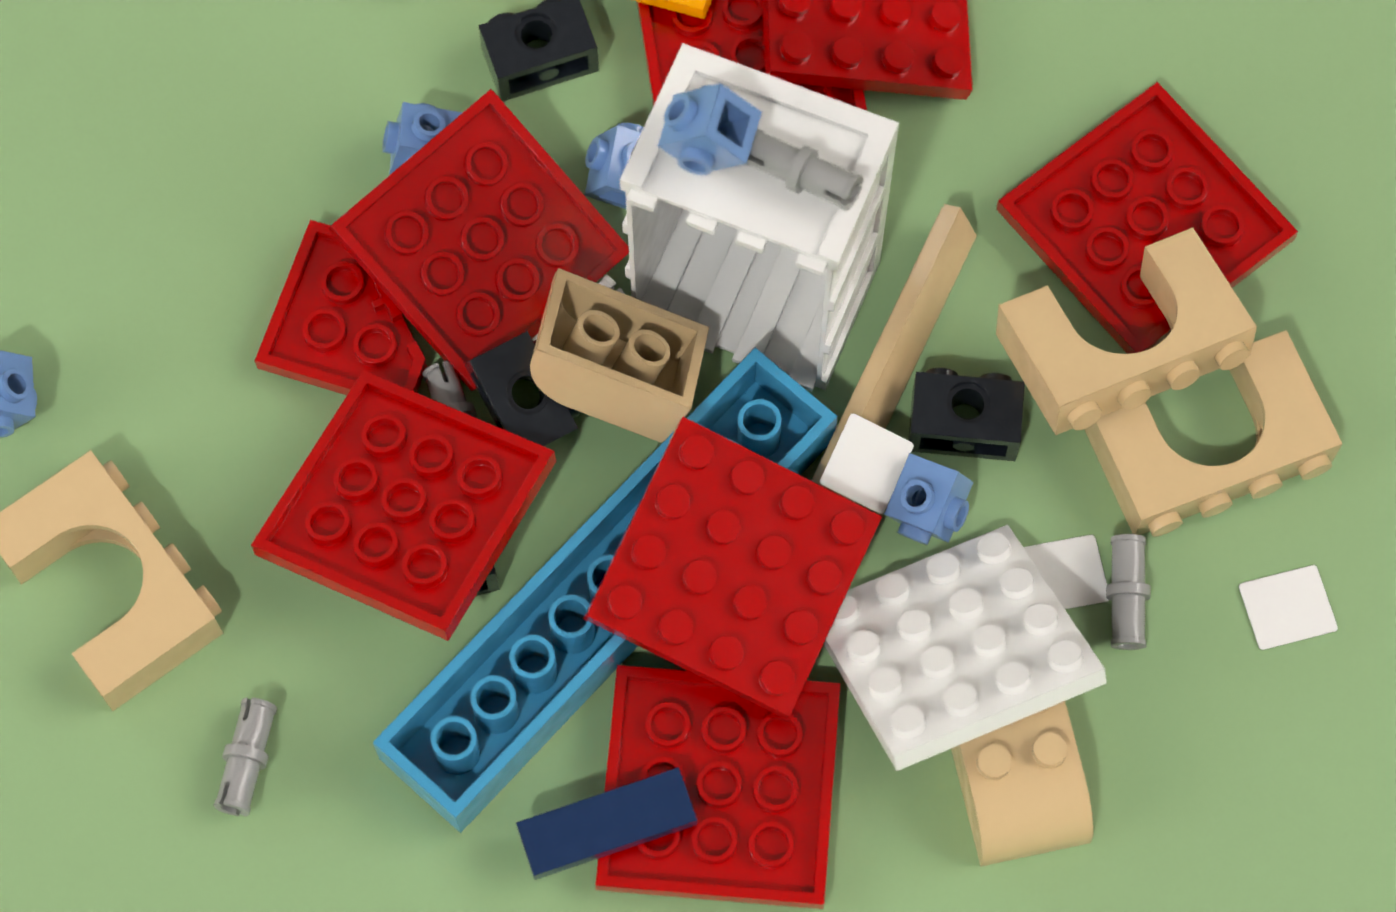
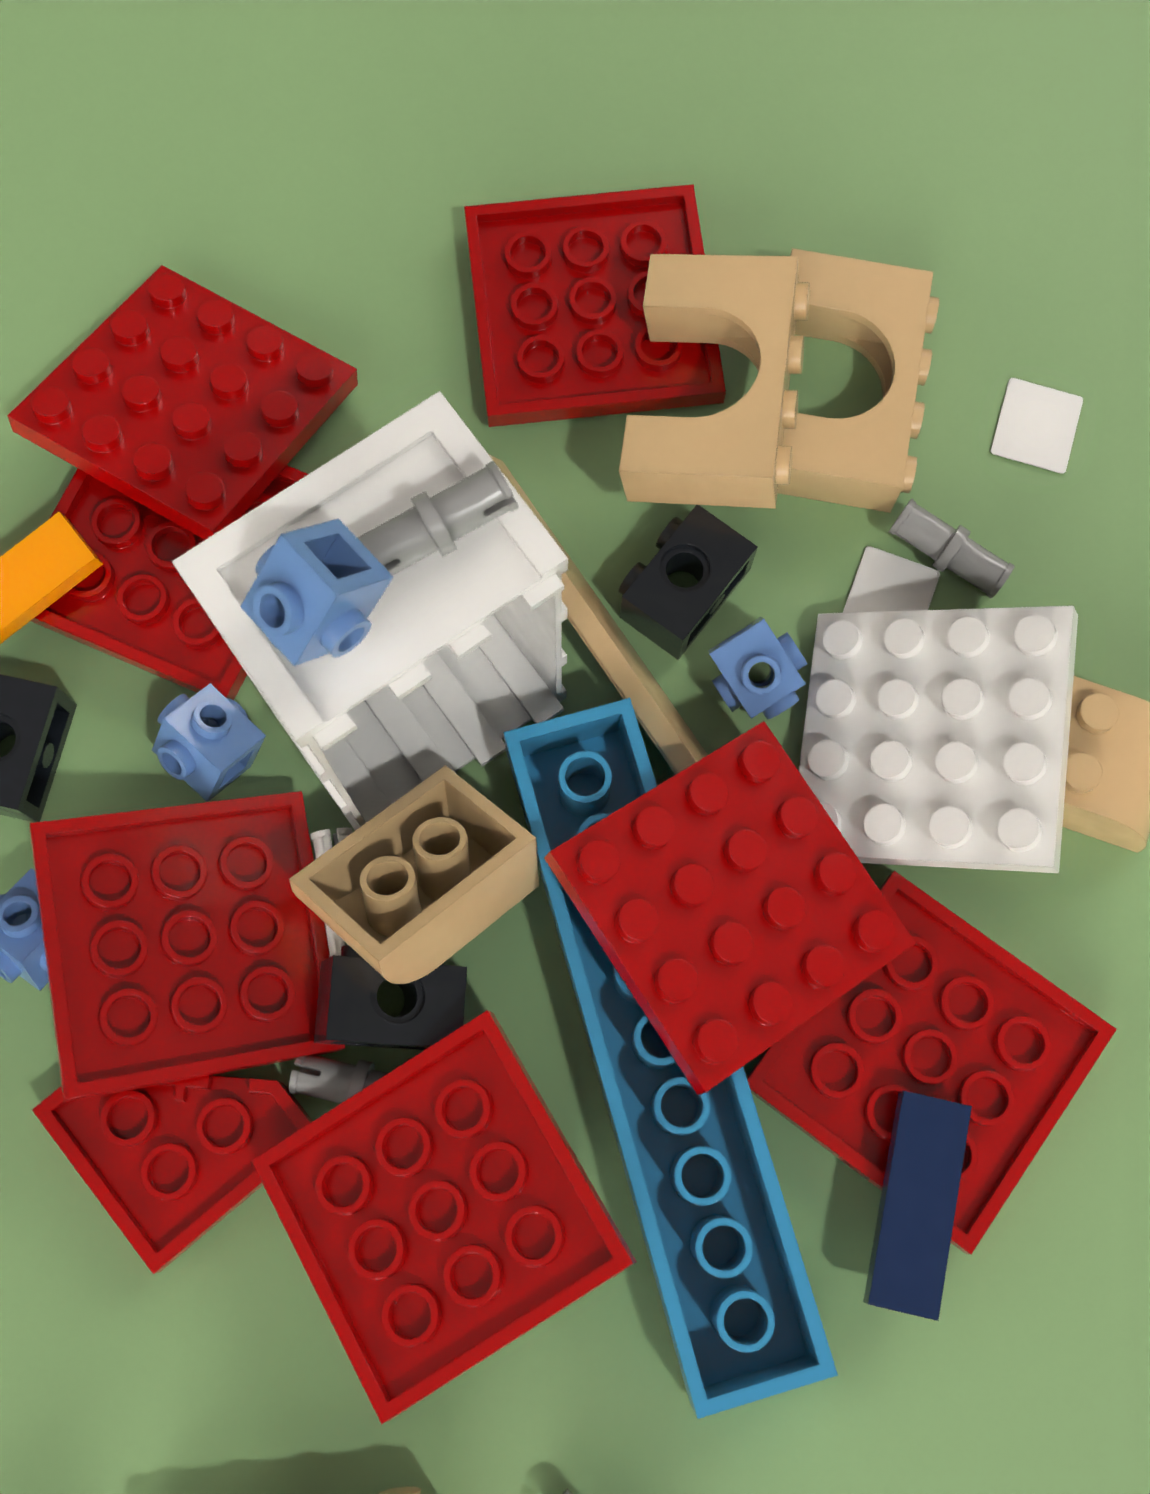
camera: 60 degrees left, 5 degrees up
(866, 463) = (689, 702): white sticker -> none

